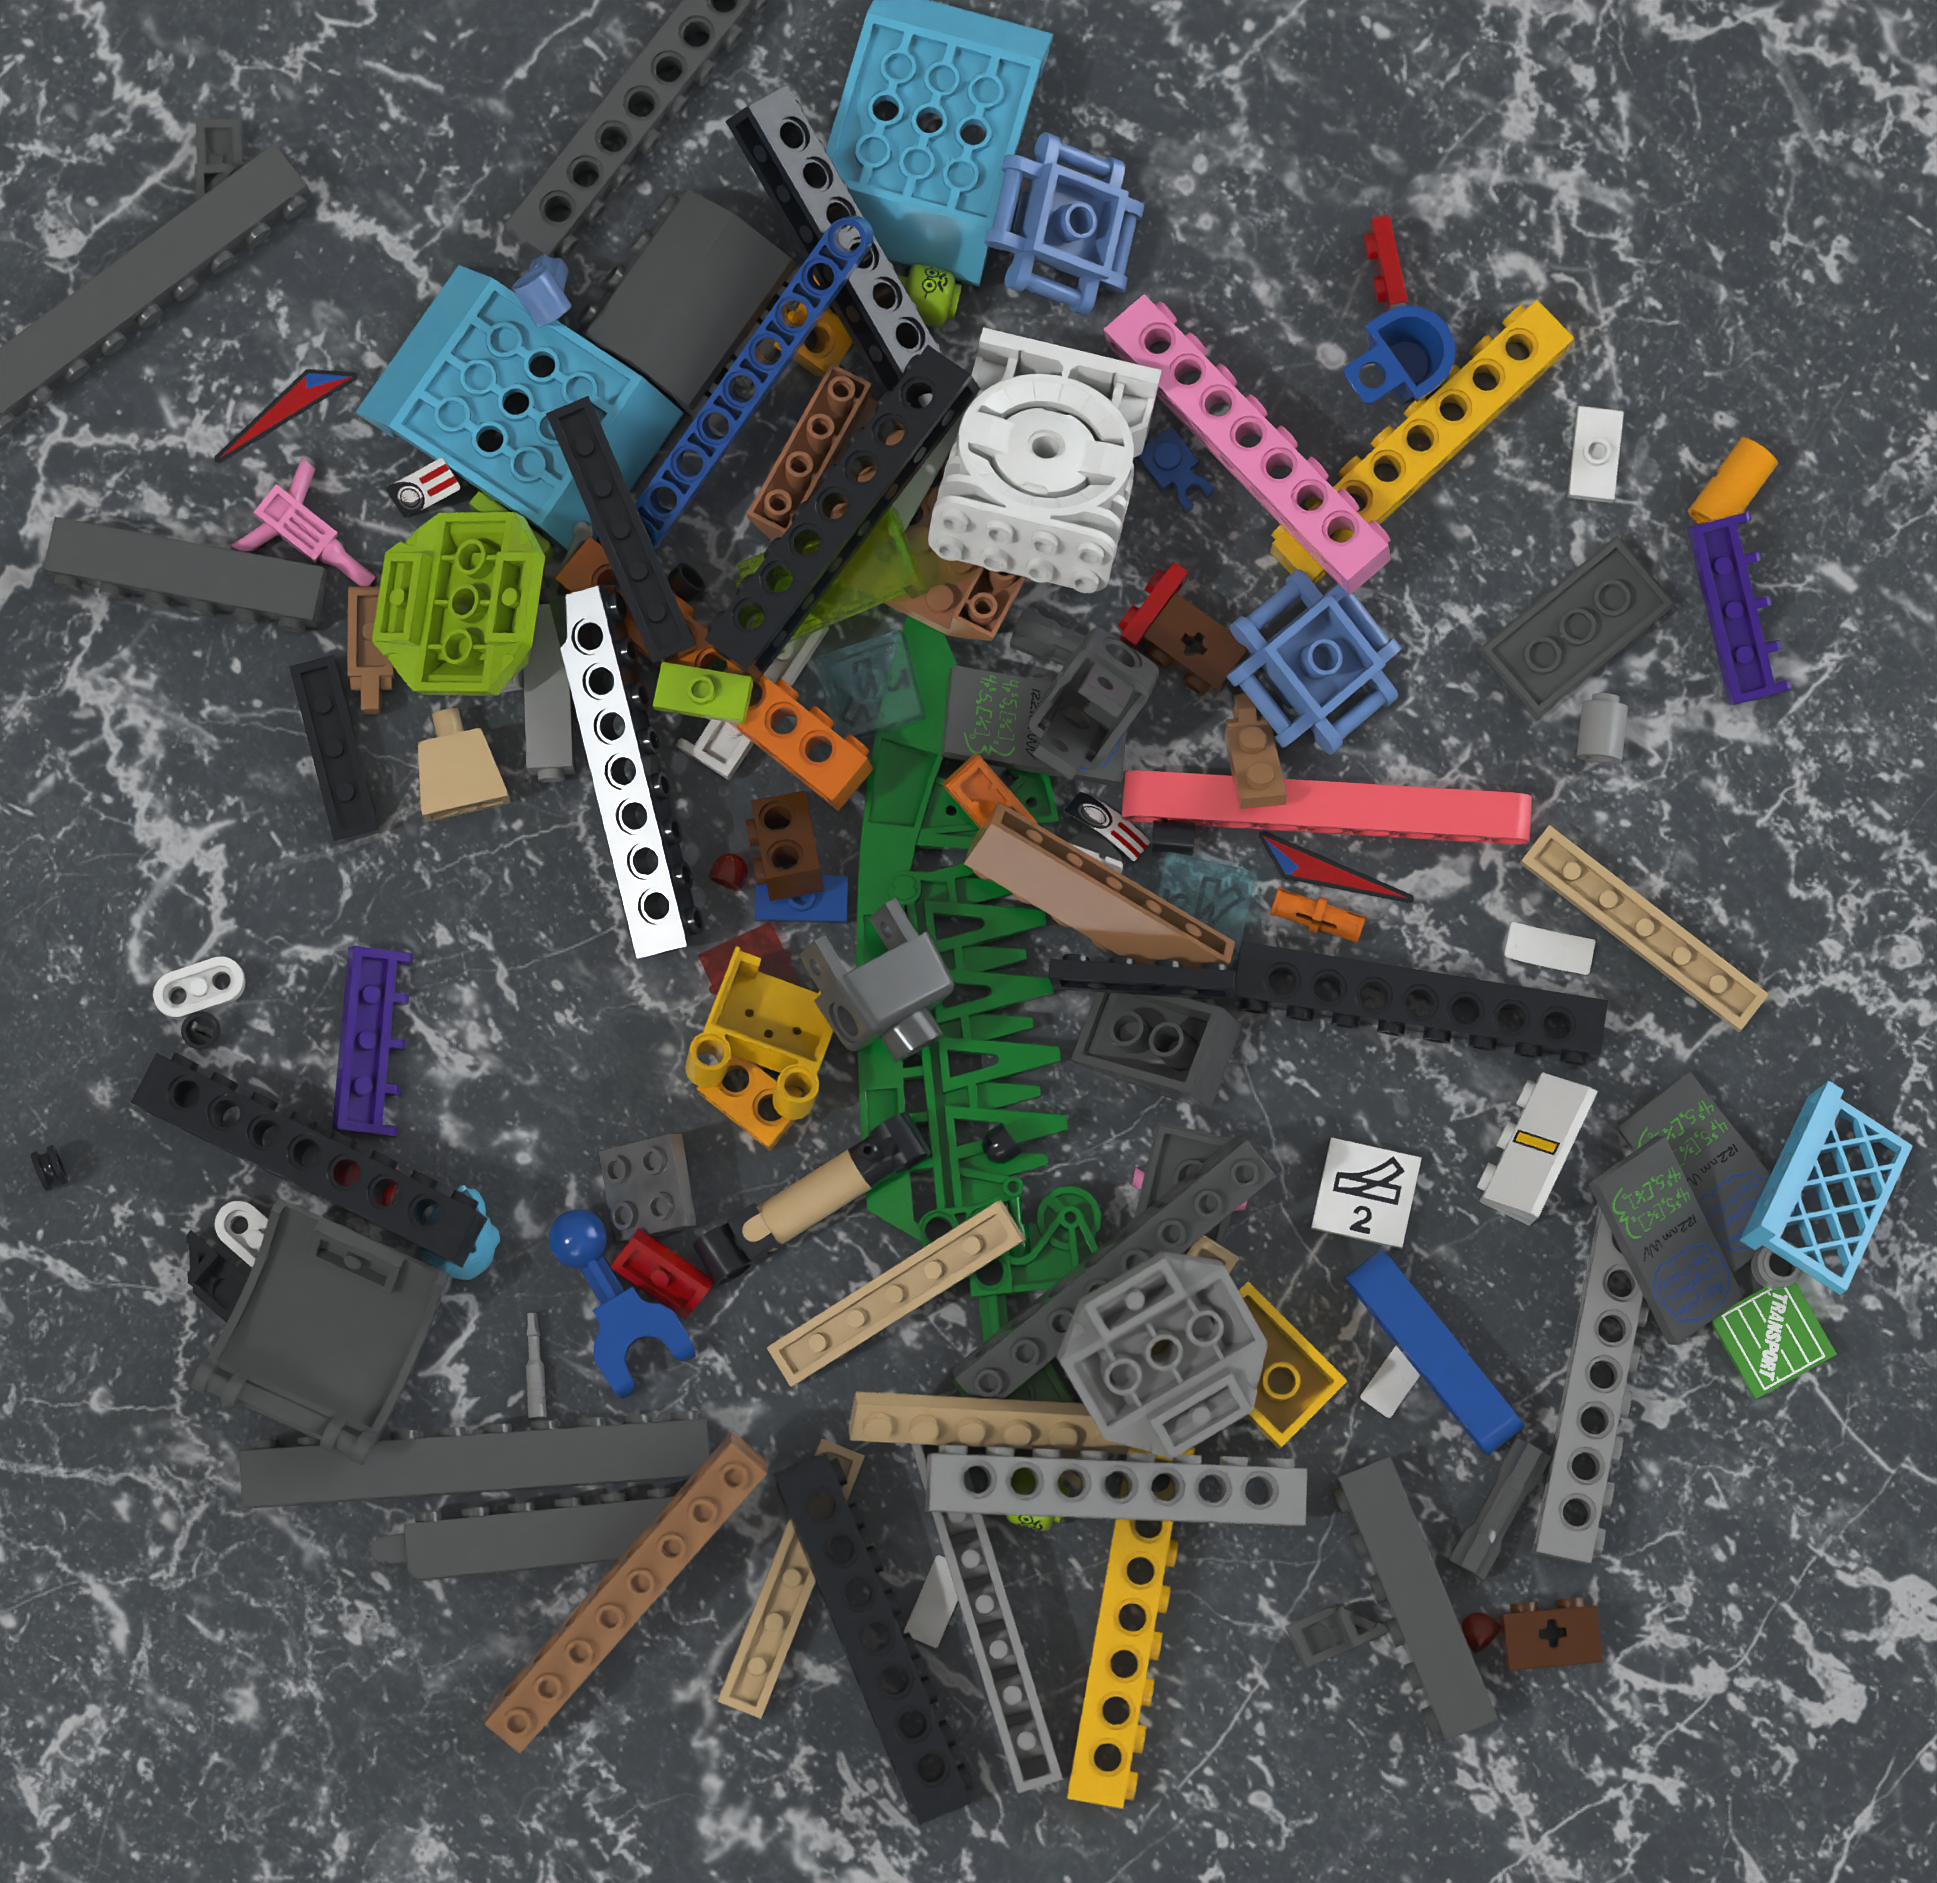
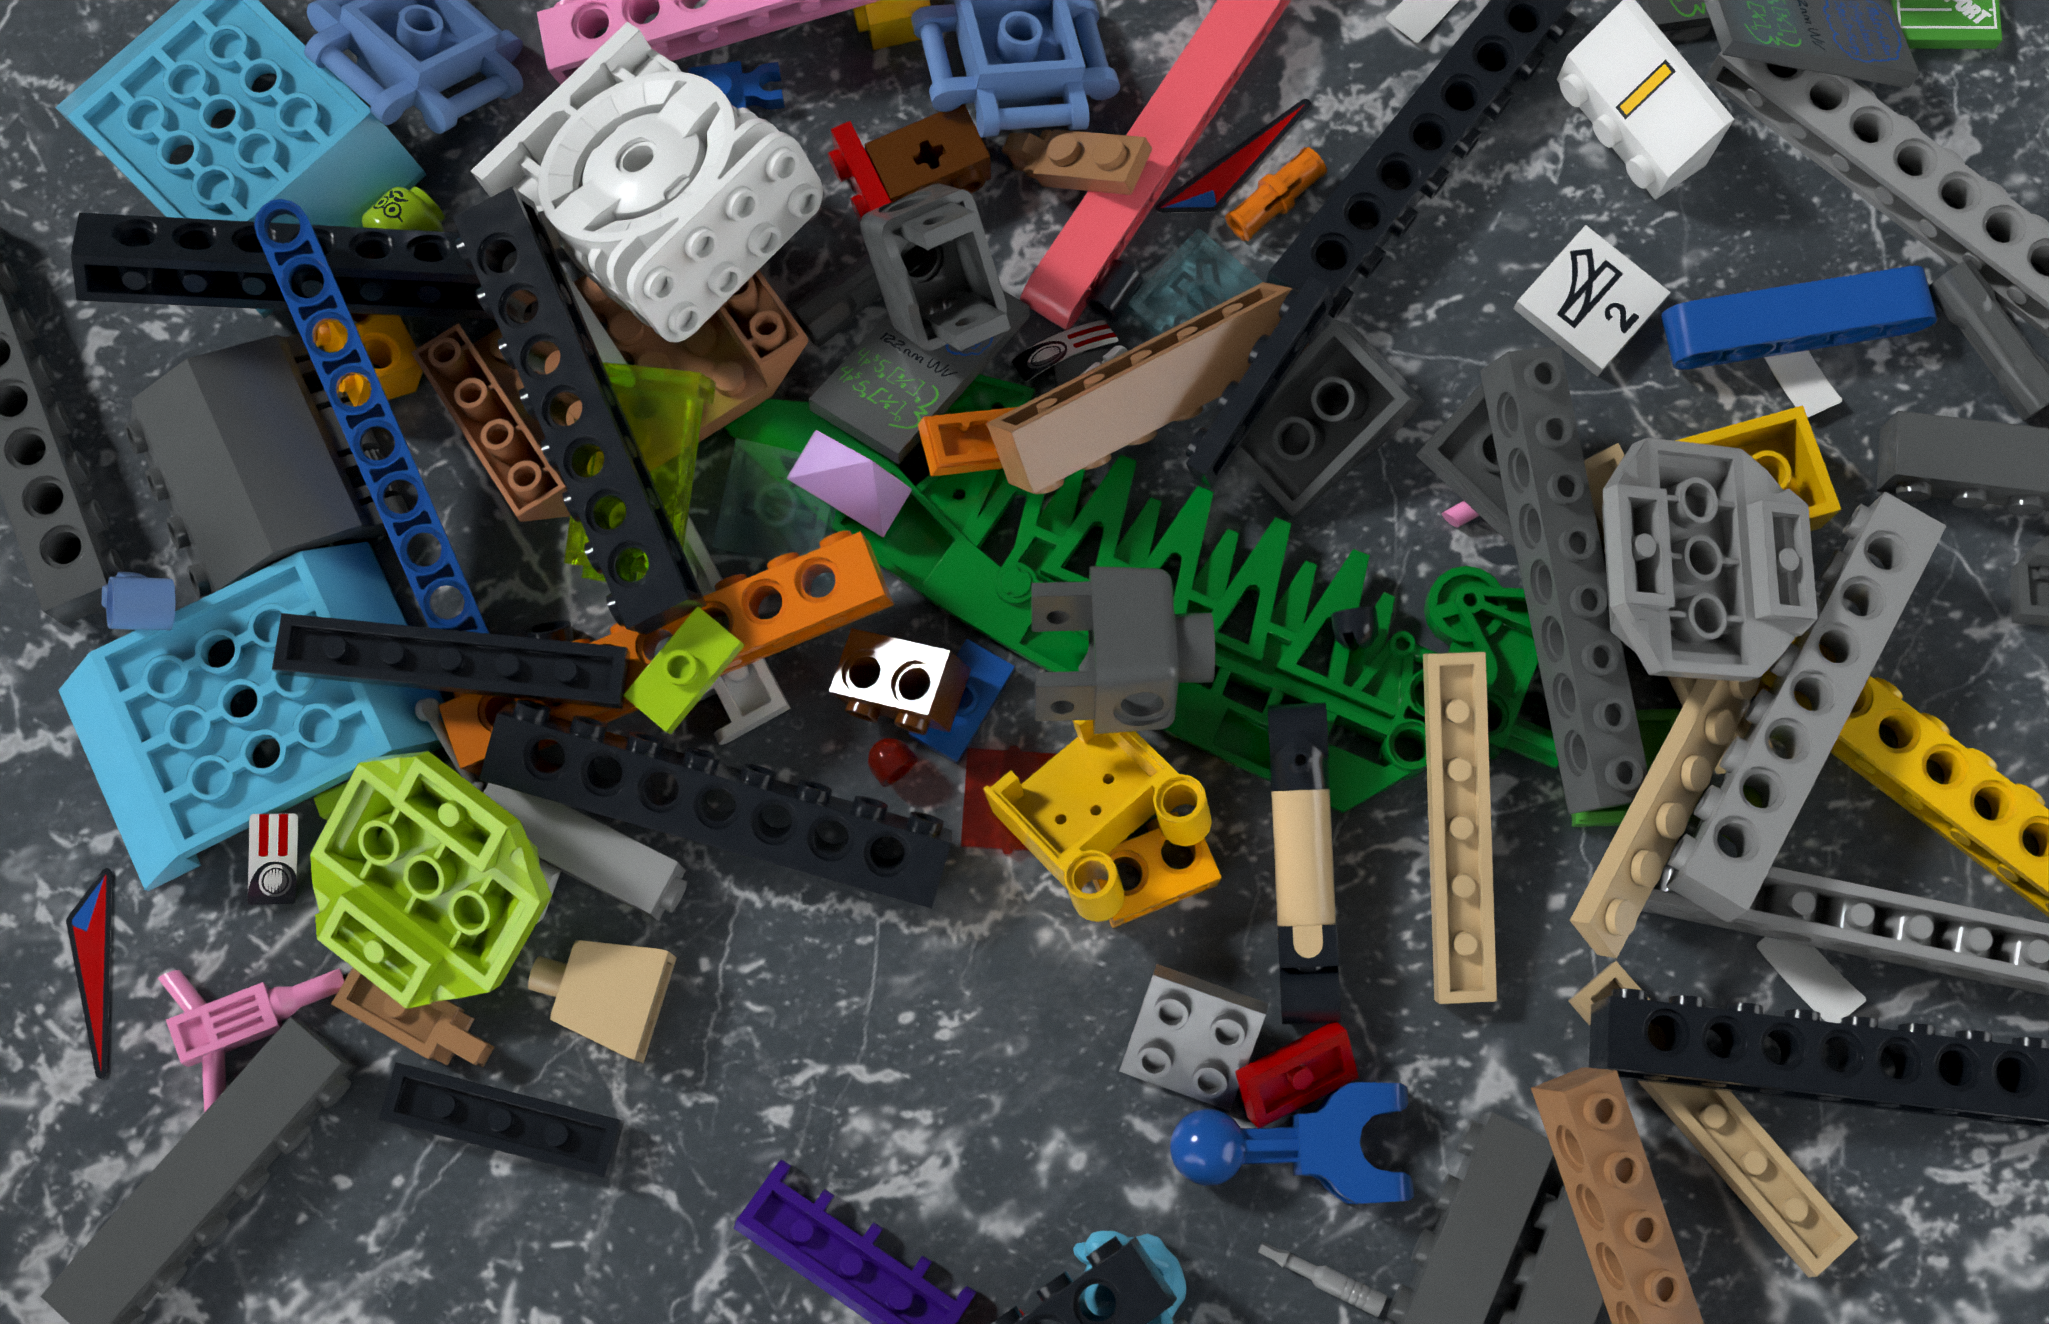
camera: 60 degrees left, 5 degrees down
(907, 729) = (849, 483): none -> lavender slope

